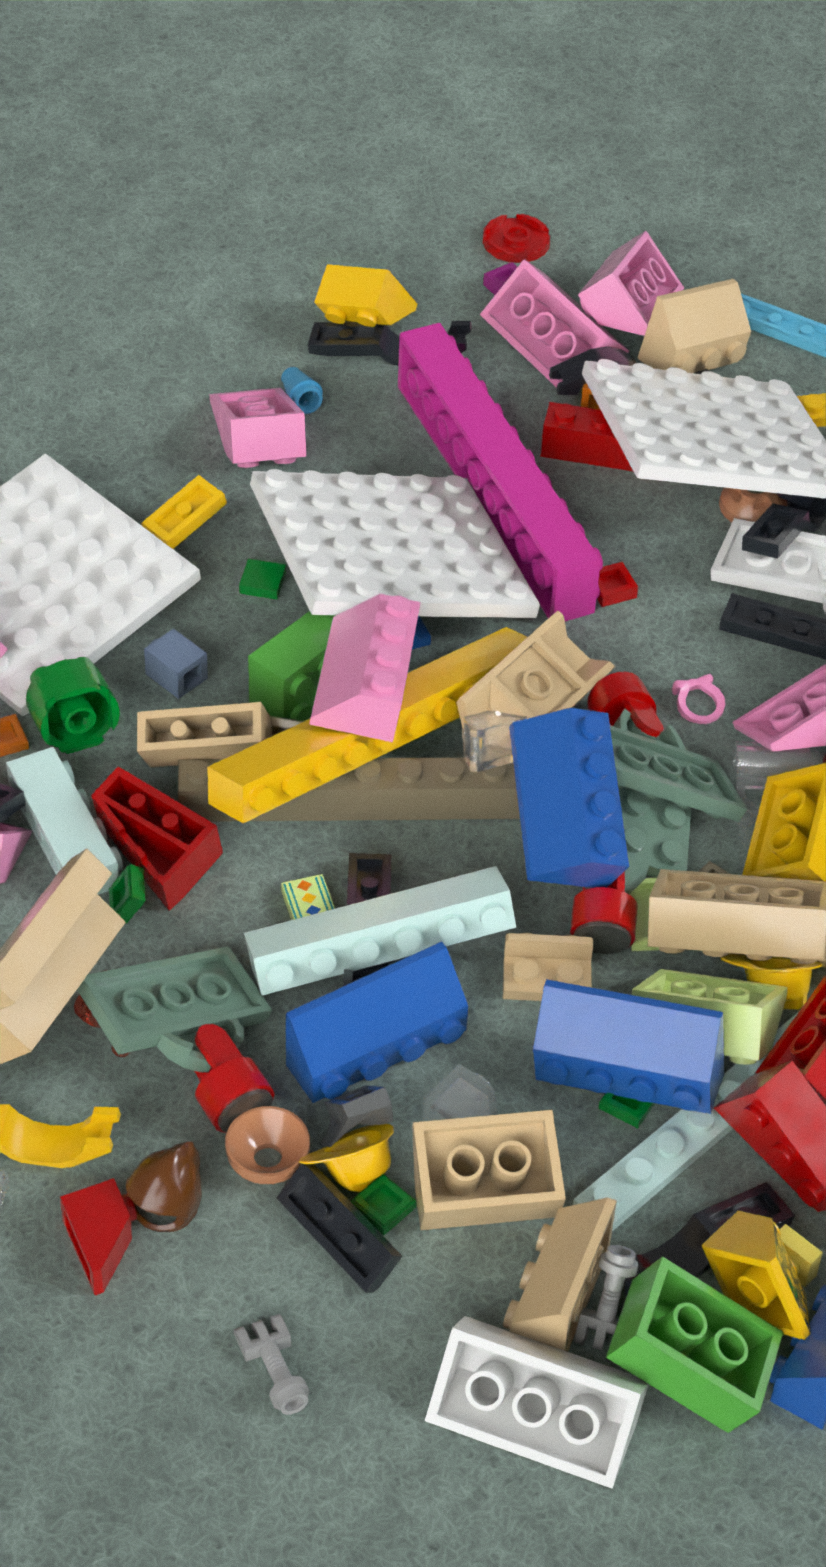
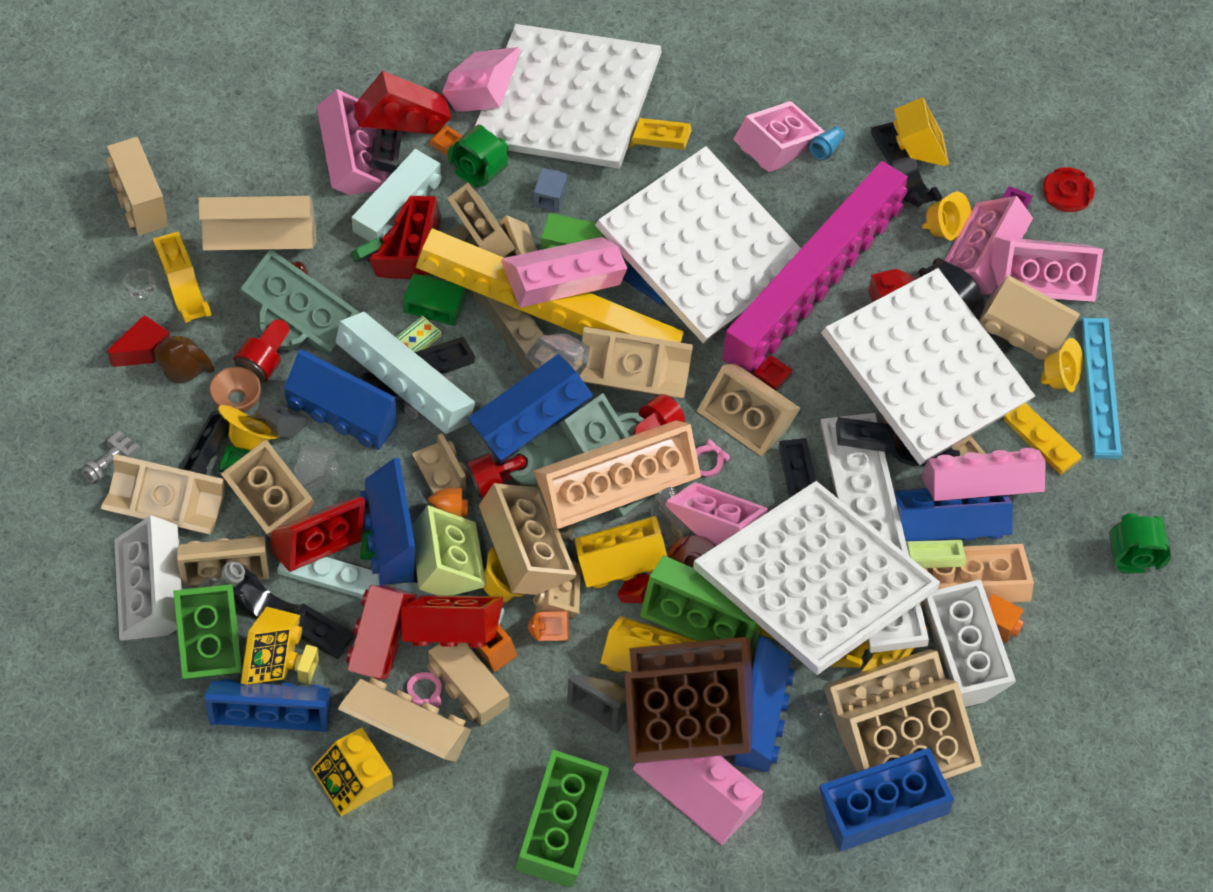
camera: 60 degrees right, 10 degrees up
(266, 856) = (434, 299): none -> green brick
(394, 1315) = (166, 493): none -> tan piece
(492, 344) = (947, 216): none -> yellow piece
(591, 1134) = (319, 534): none -> red slope
(625, 969) = (450, 501): none -> orange plate
(654, 626) = (747, 408): none -> tan slope
(700, 769) = (618, 473): none -> light nougat arch
(772, 347) = (1064, 366): none -> yellow piece

